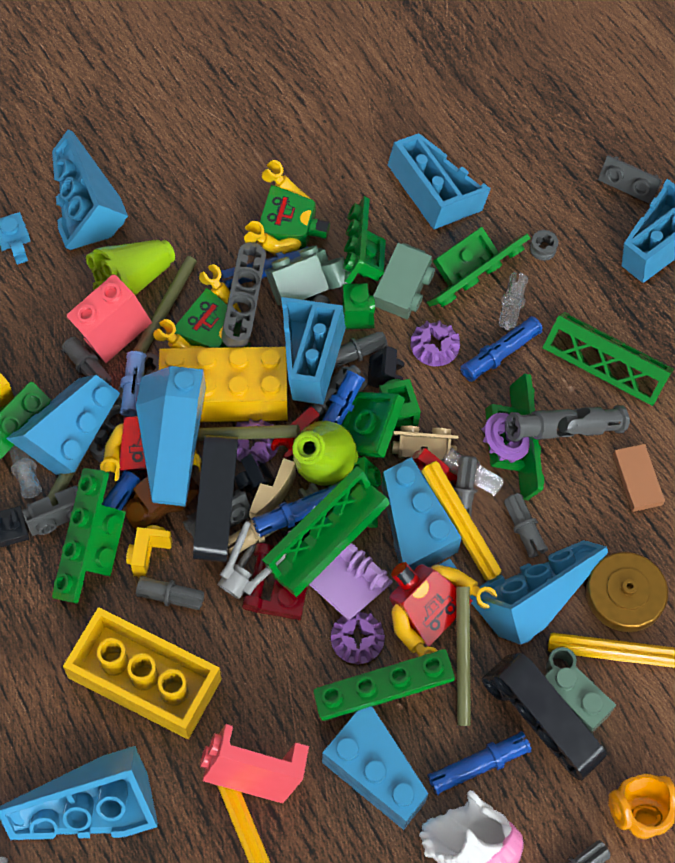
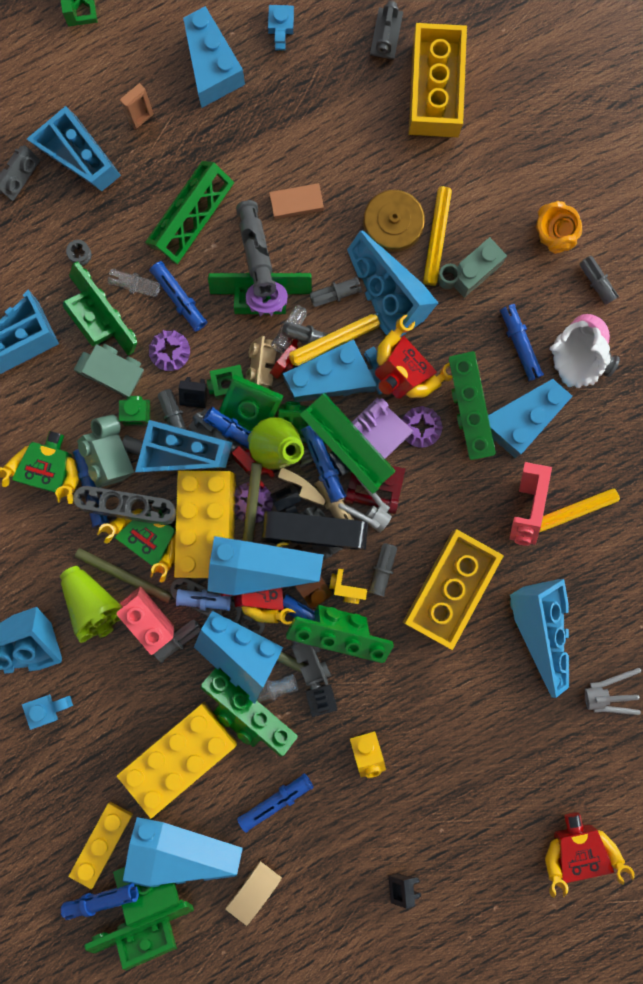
camera: 90 degrees left, 20 degrees up
(363, 248) = (78, 402): green bracket -> none
(463, 655) = (444, 346): olive bar -> none
(546, 712) = (487, 292): black beam -> none

